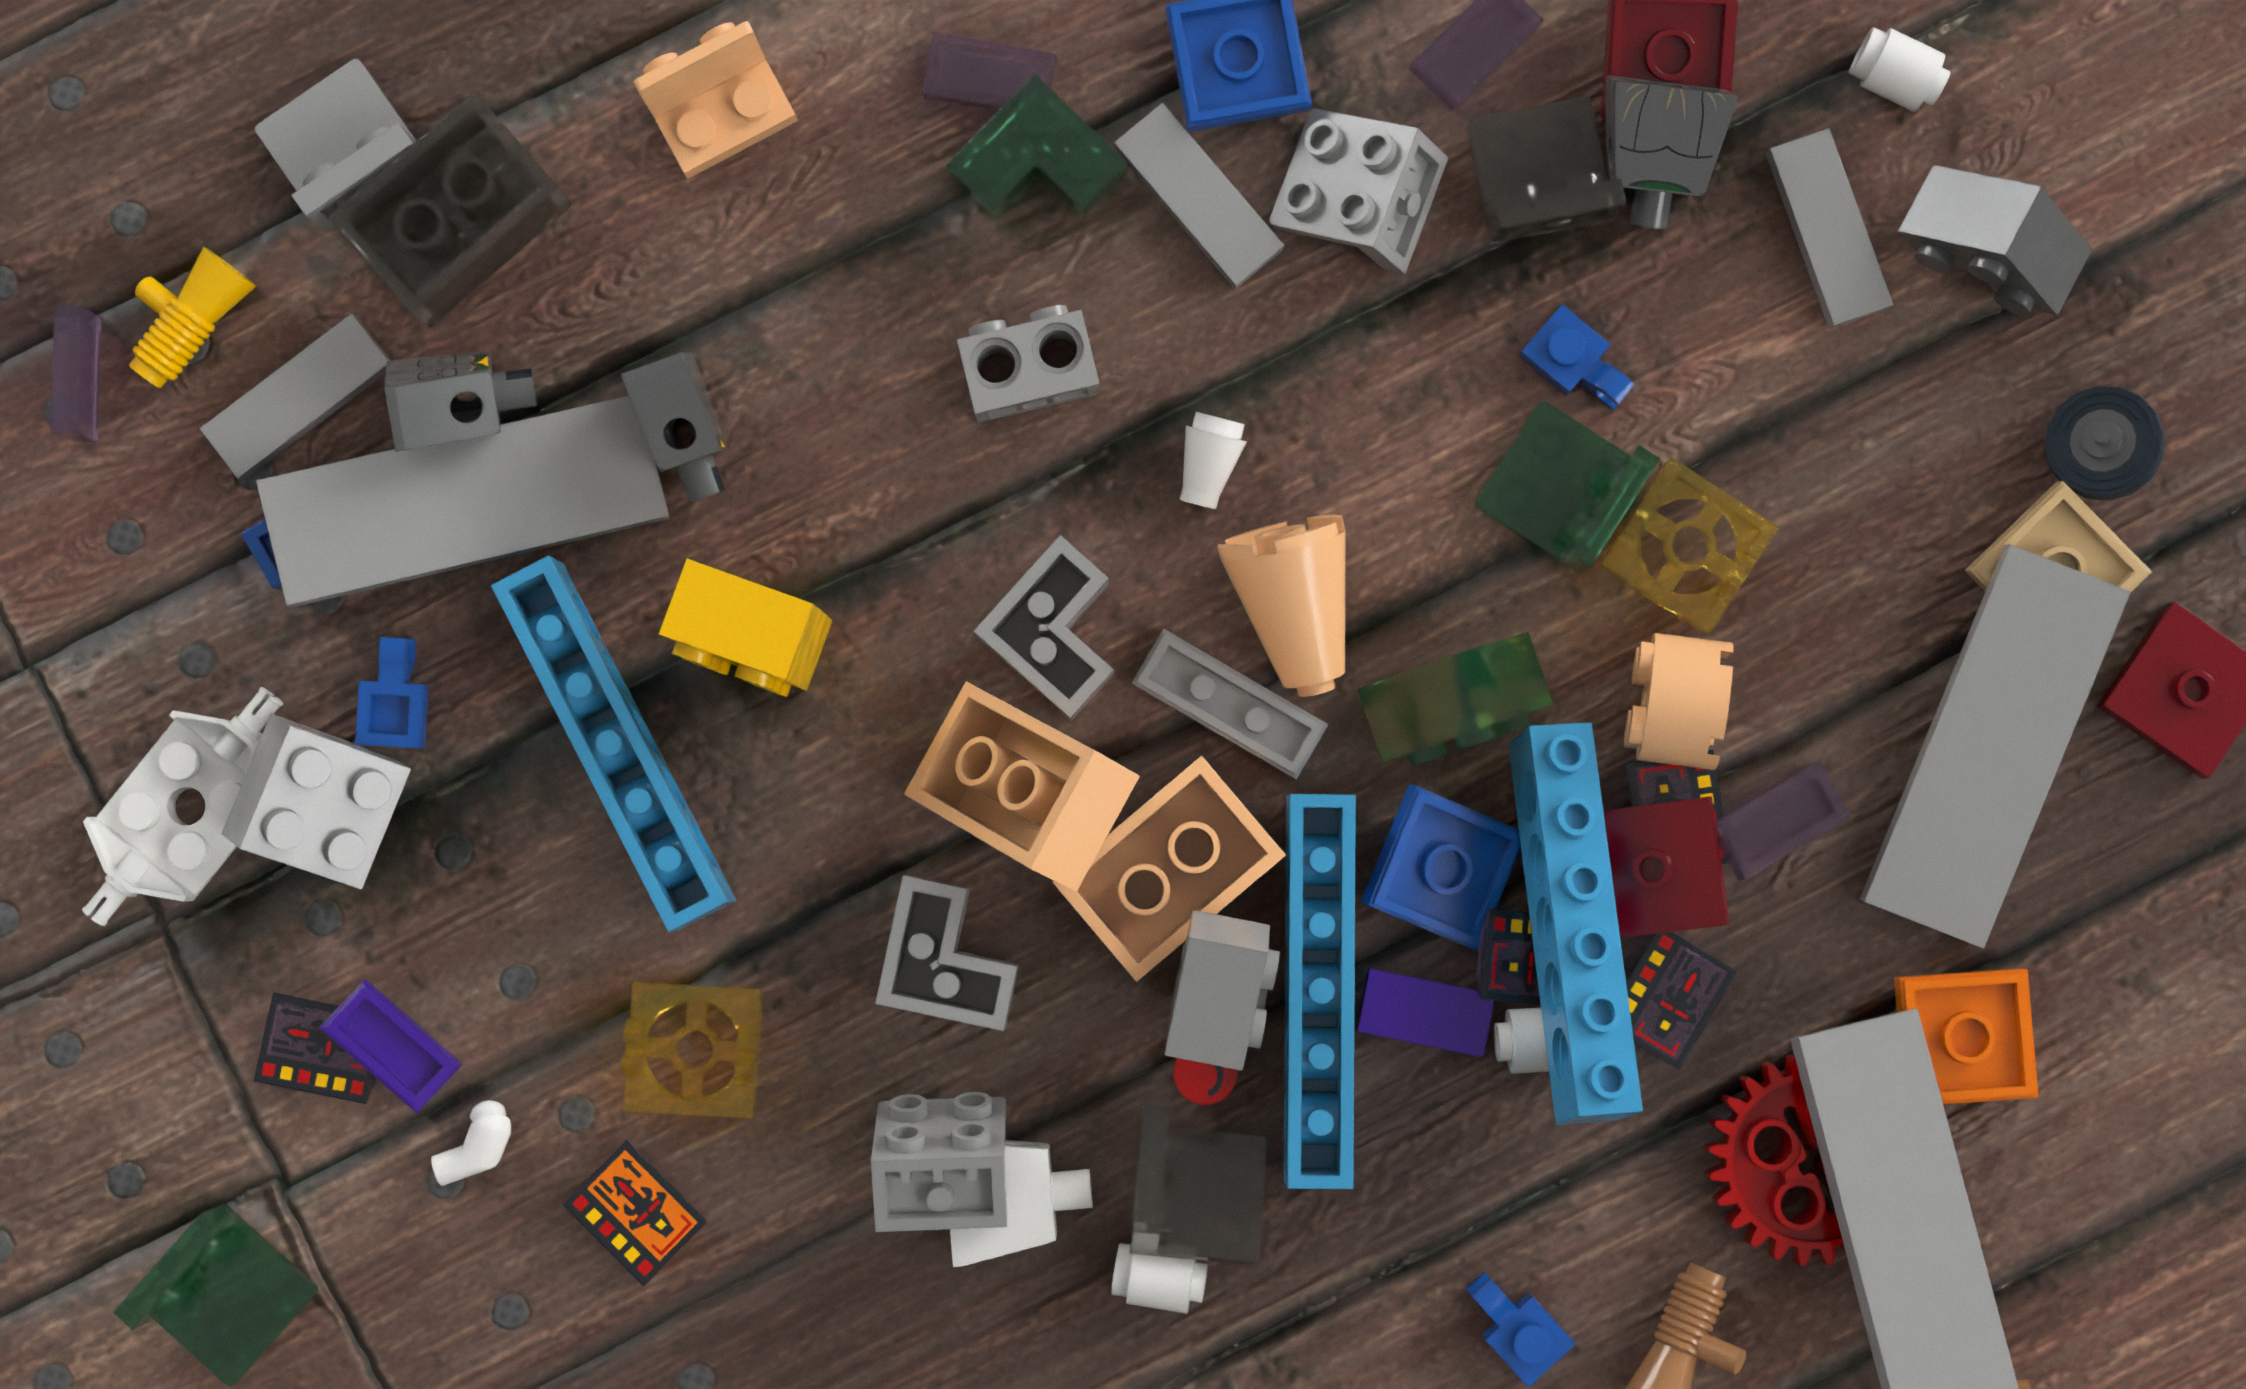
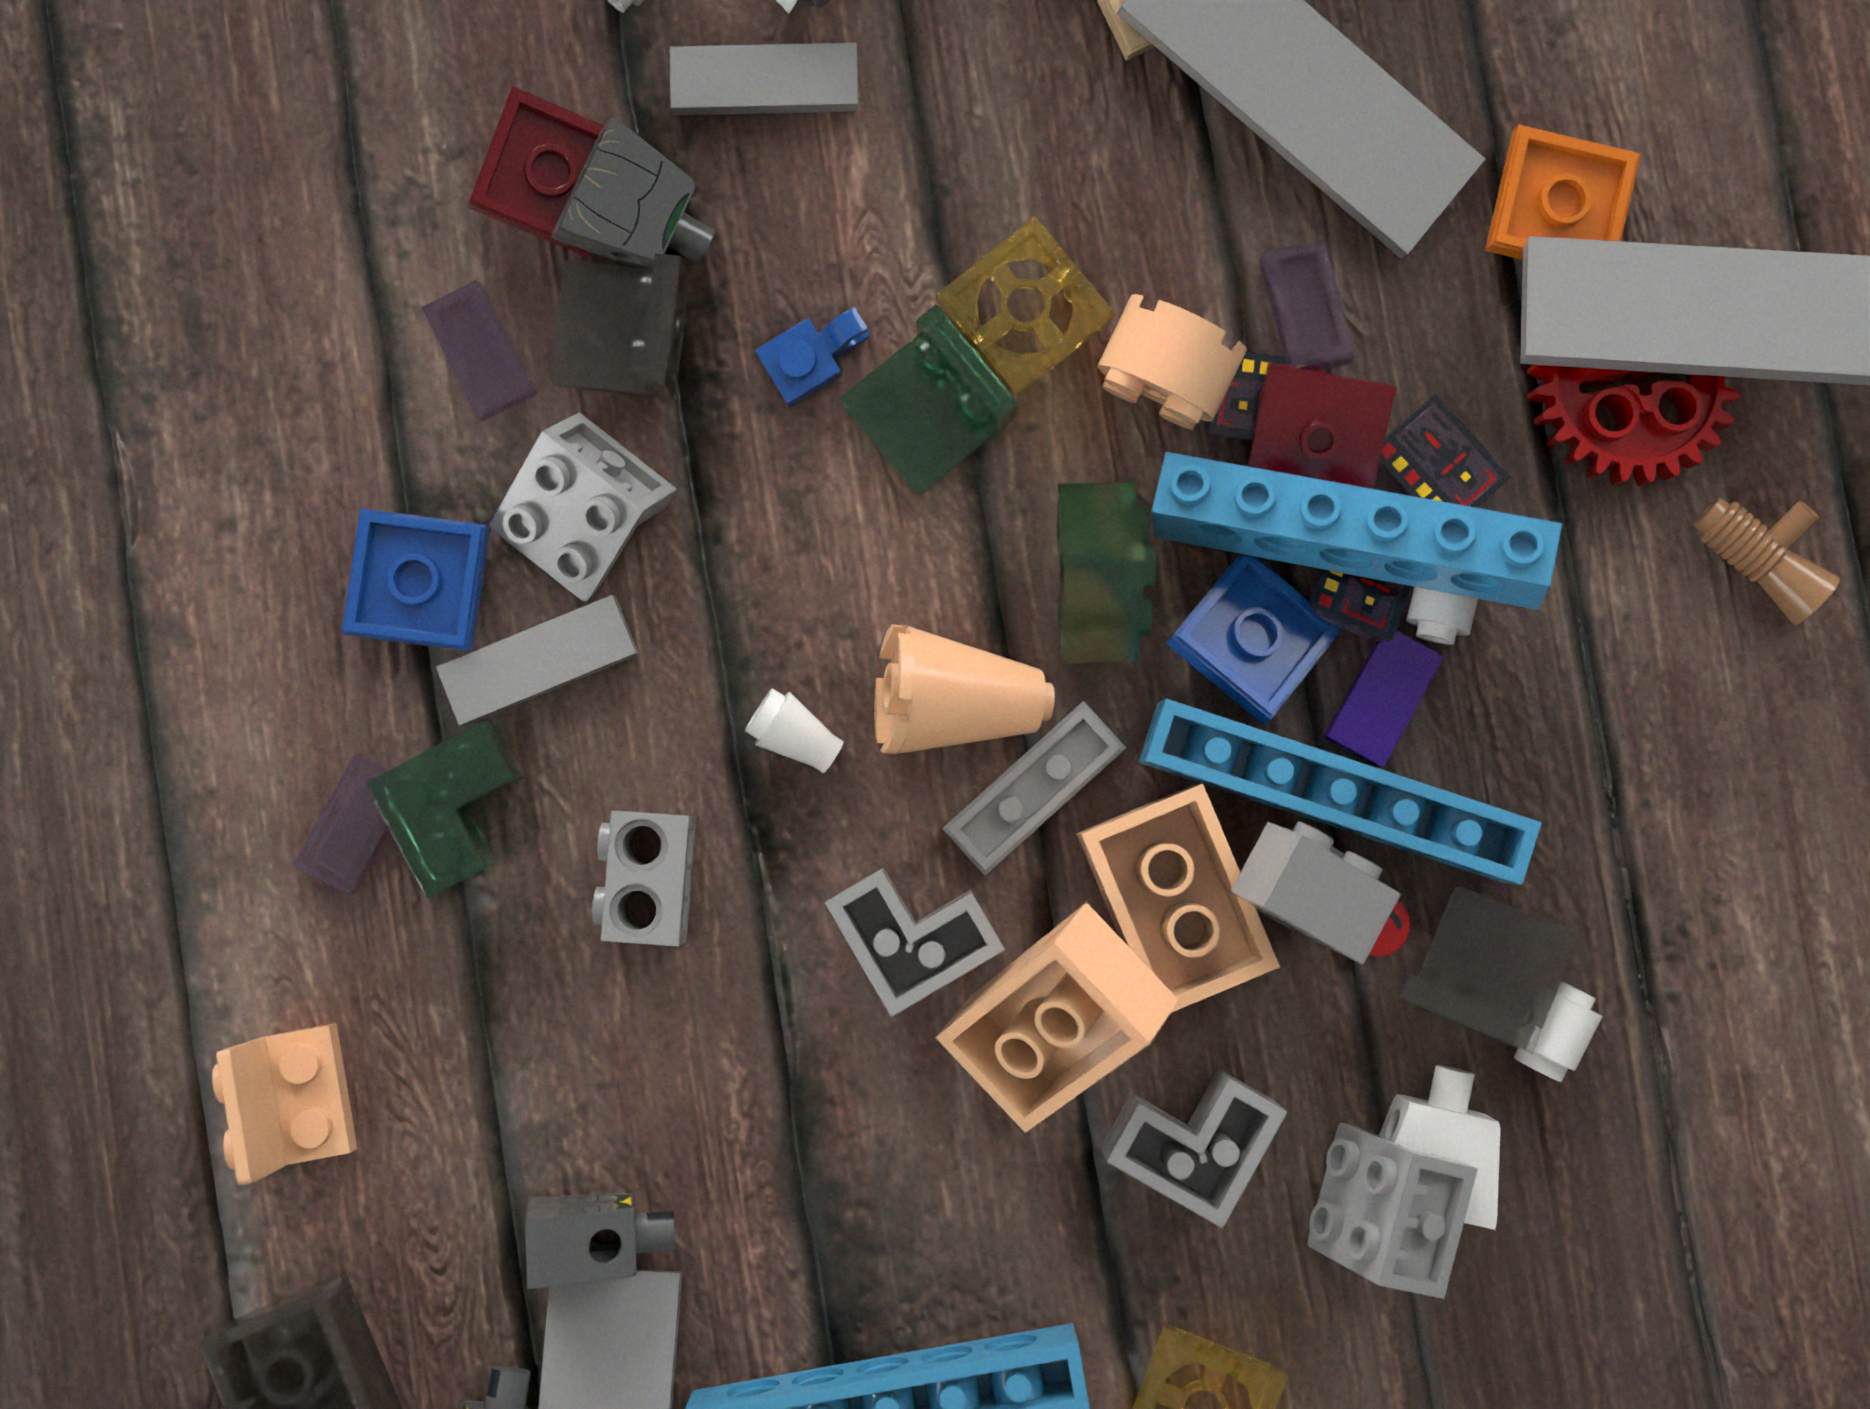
camera: 70 degrees left, 0 degrees up
(744, 624) = (816, 1245): yellow brick -> none
(1522, 1331) = (1709, 704): blue plate -> none

